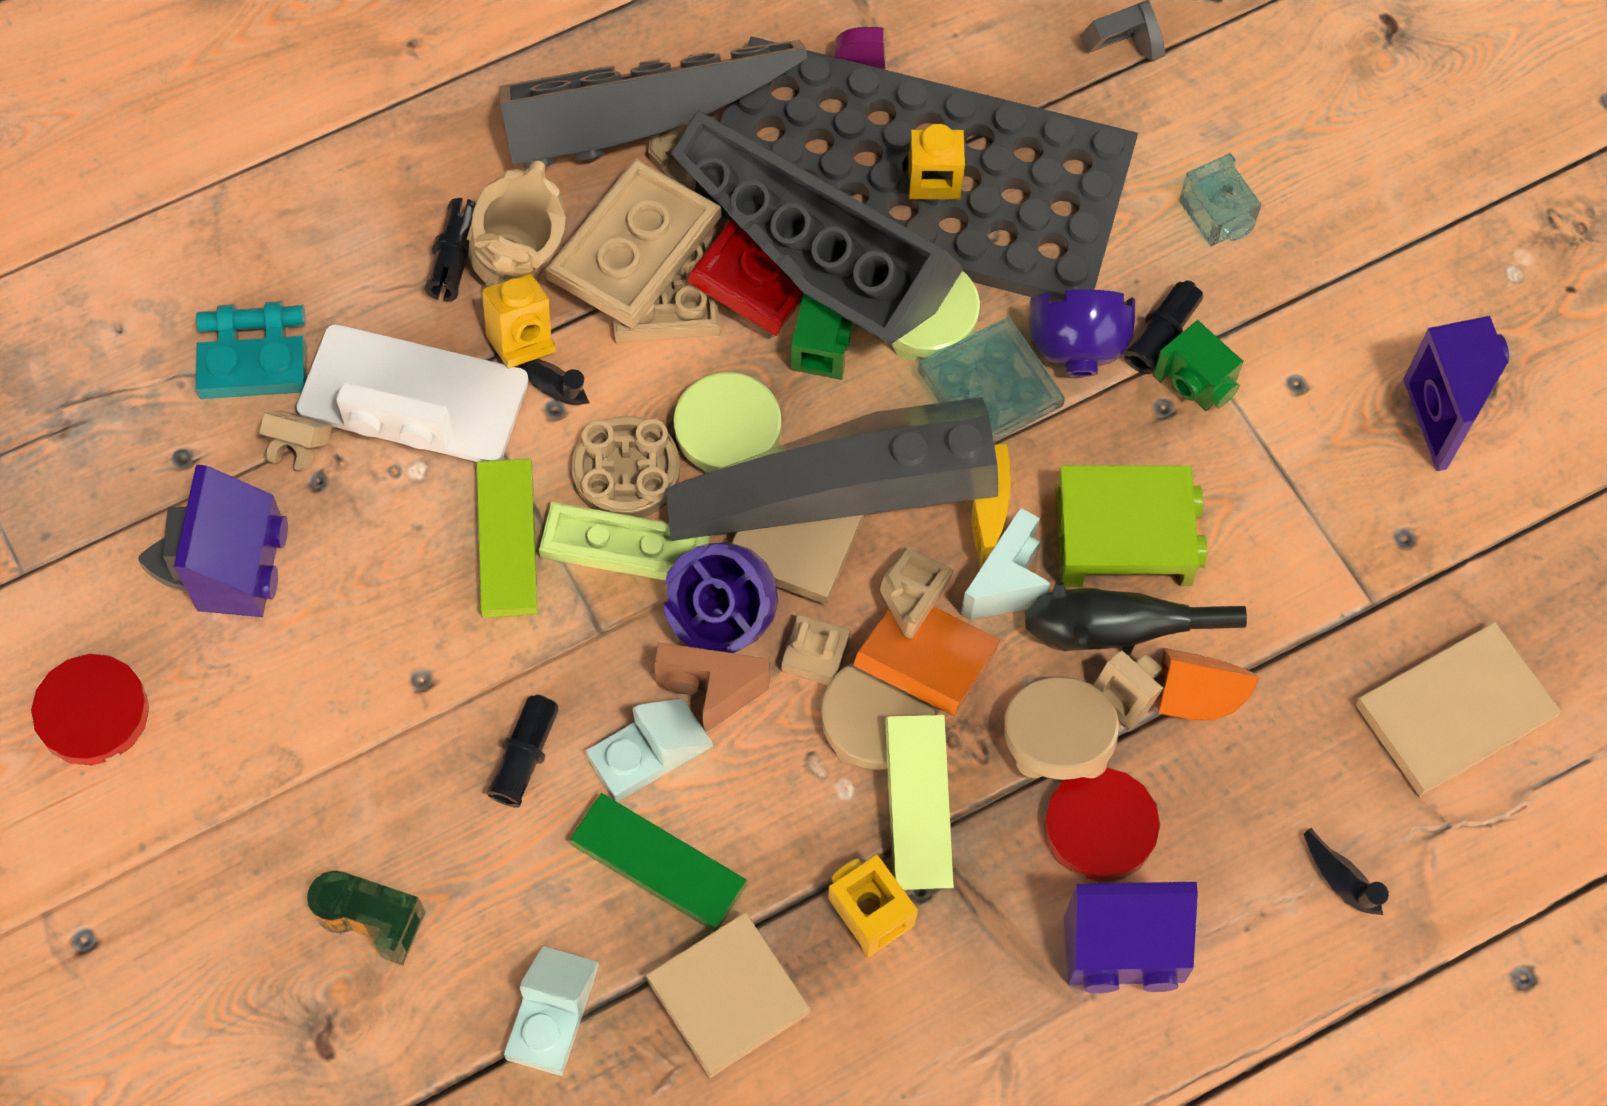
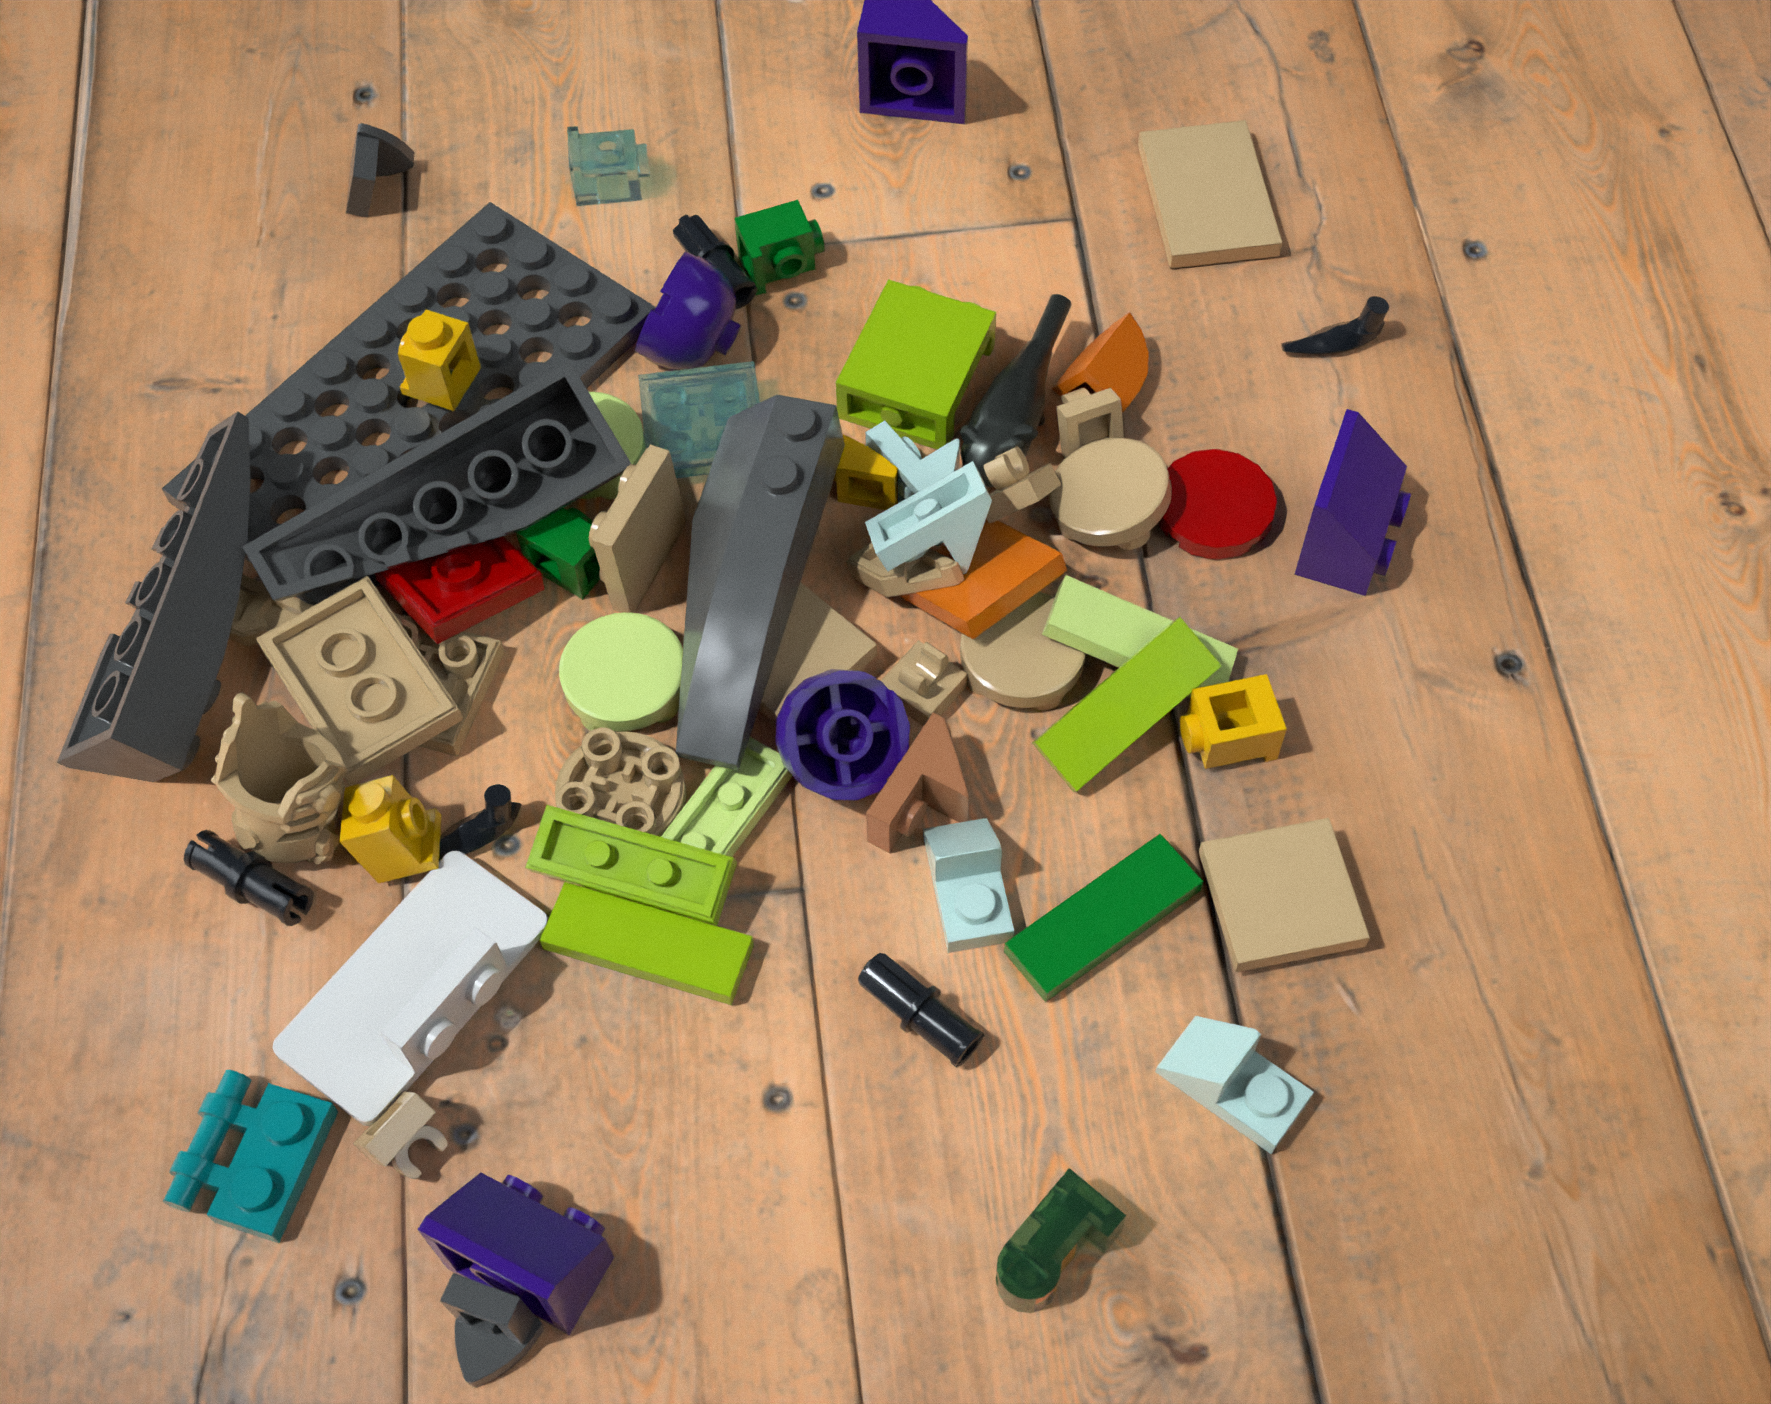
camera: 65 degrees left, 5 degrees down
(556, 497) = (632, 864): none -> lime tile
(844, 375) = (638, 528): none -> tan tile
(849, 810) = (1126, 704): none -> lime tile
(862, 46) = (244, 386): magenta tile -> none
(944, 586) = (944, 511): none -> light aqua slope
(1024, 651) = (1015, 485): none -> tan tile

